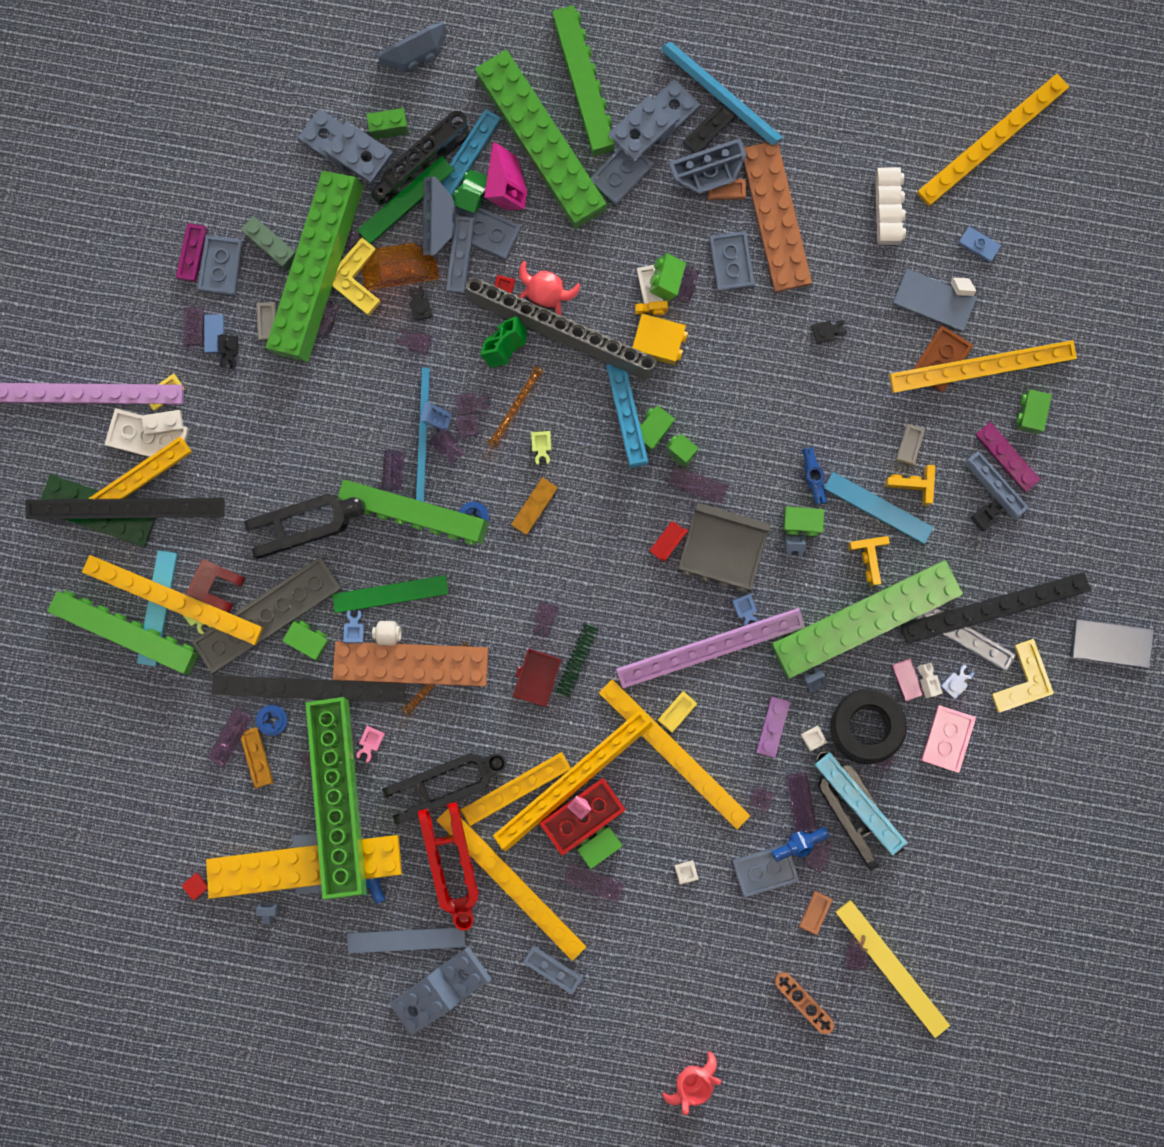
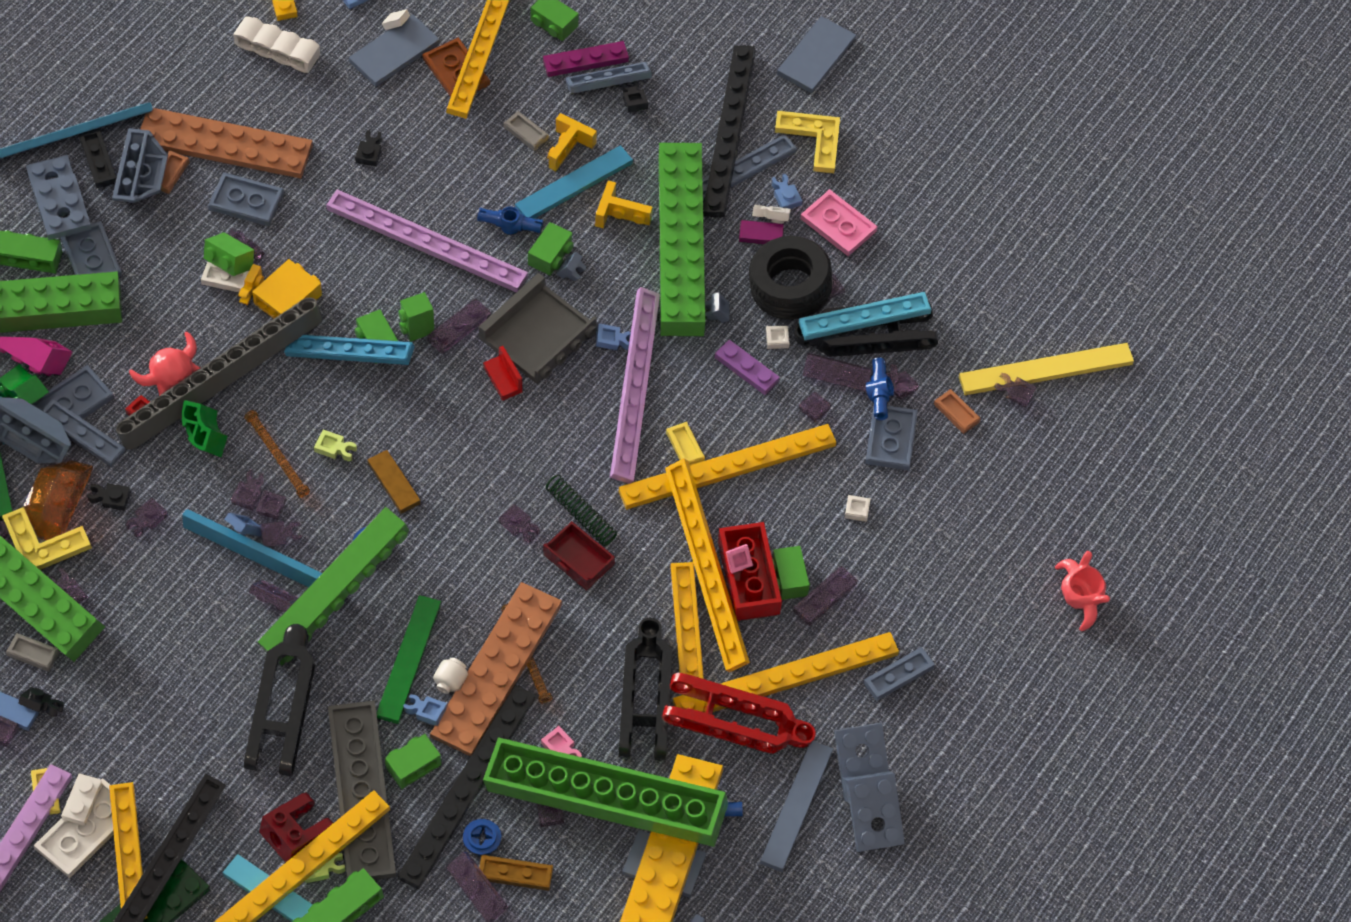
camera: 70 degrees left, 25 degrees down
(762, 420) = (427, 241): none -> lavender plate
(804, 1002) = (1046, 463): nougat beam -> none

